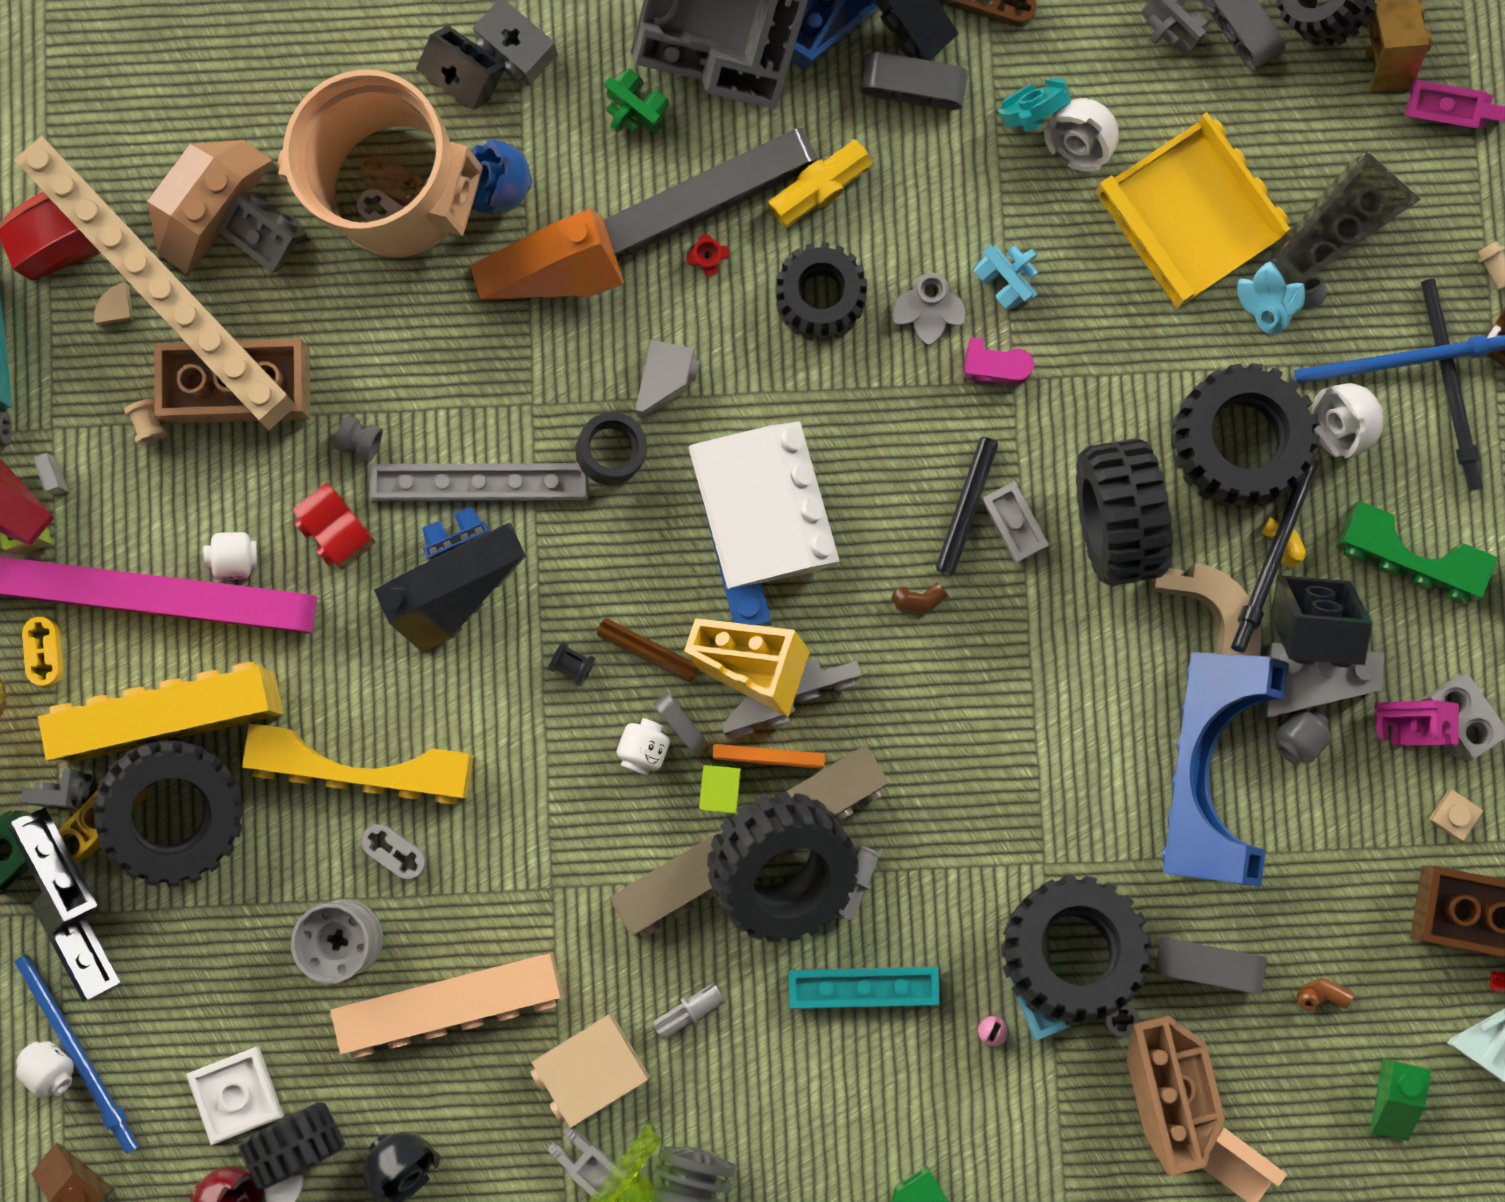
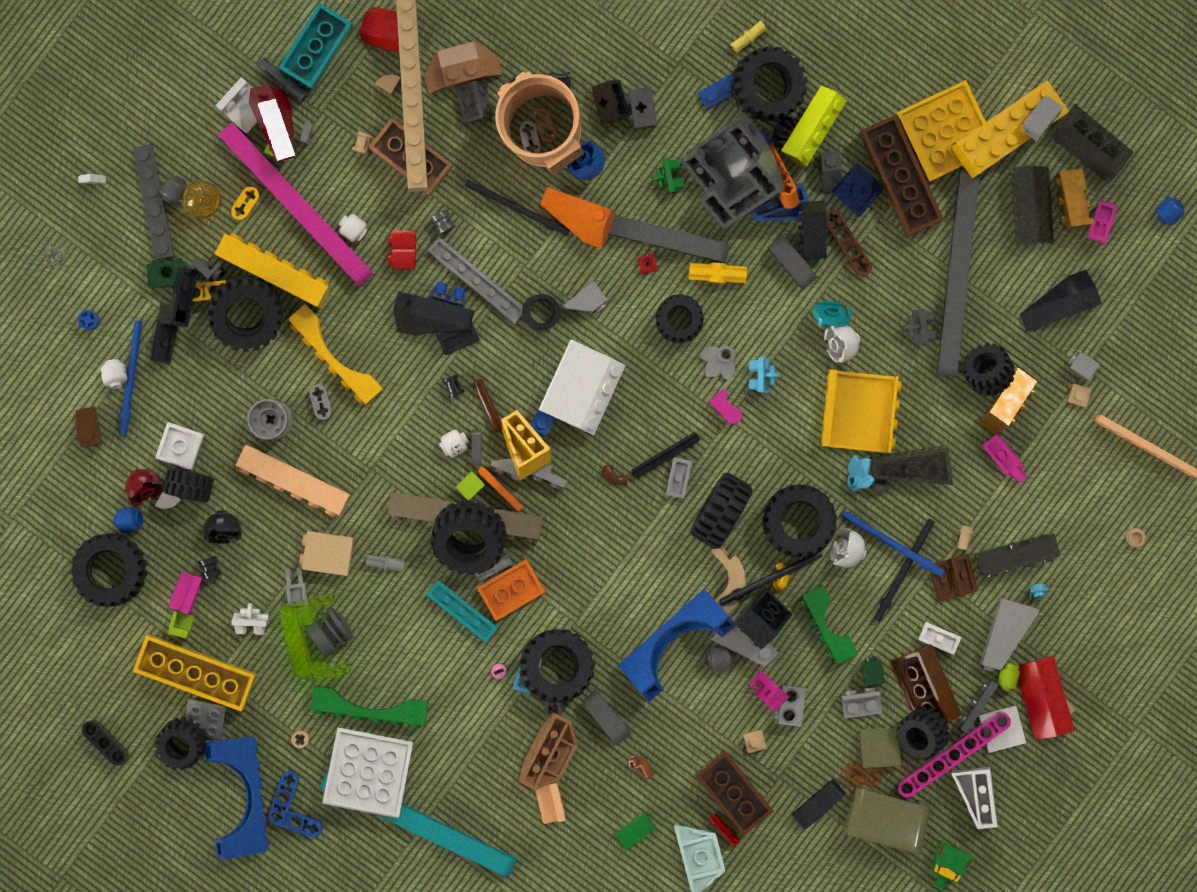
camera: 35 degrees right, 5 degrees up
(520, 313) = (550, 224): none -> black bar
(521, 590) = (456, 340): none -> black hinge
(909, 893) = (511, 589): none -> orange plate

